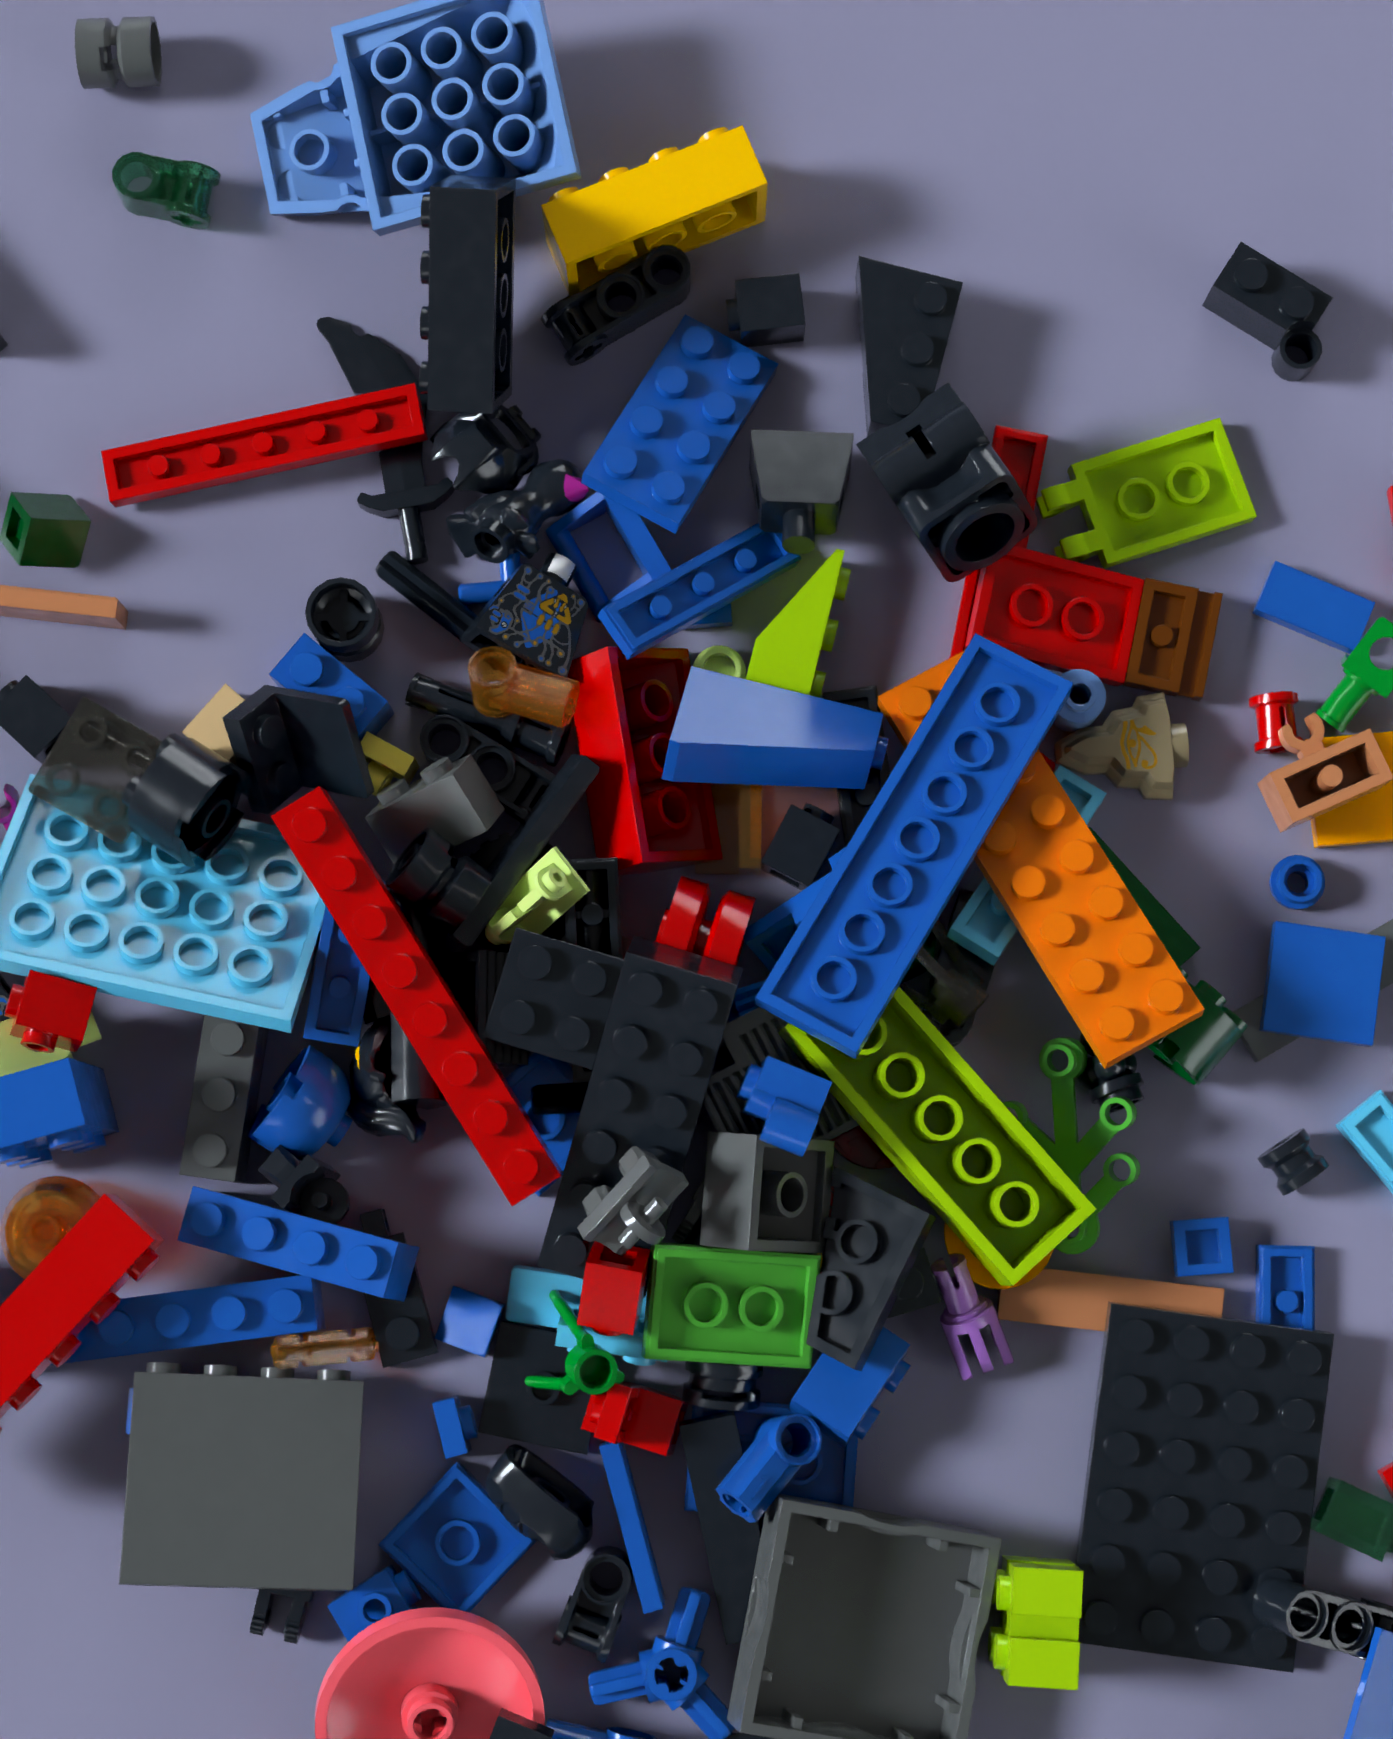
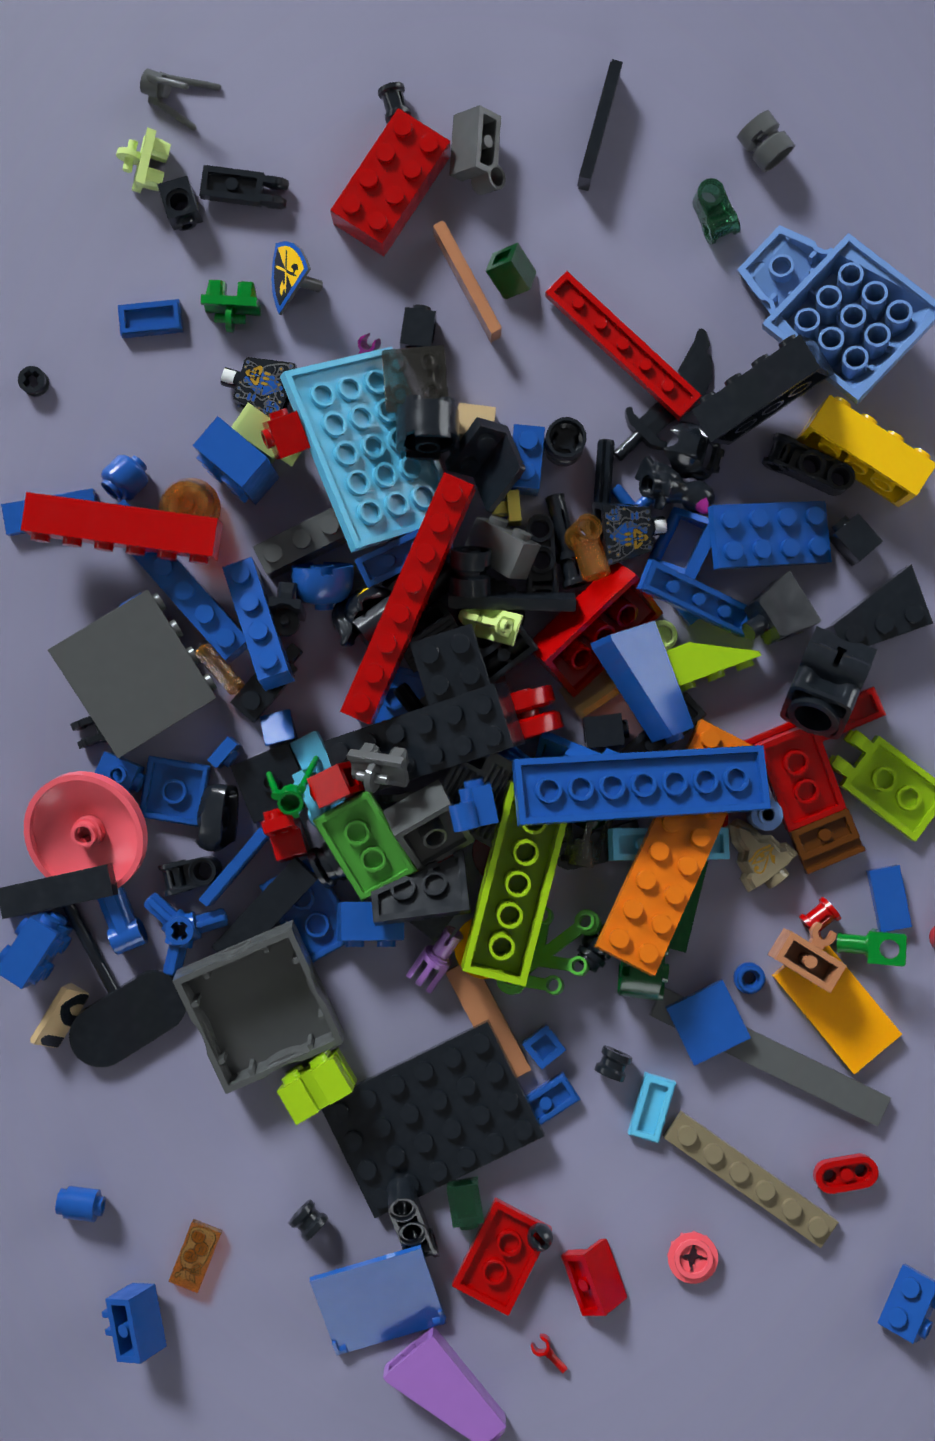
camera: 55 degrees right, 5 degrees up
(767, 1467) = (302, 911): blue piece -> none

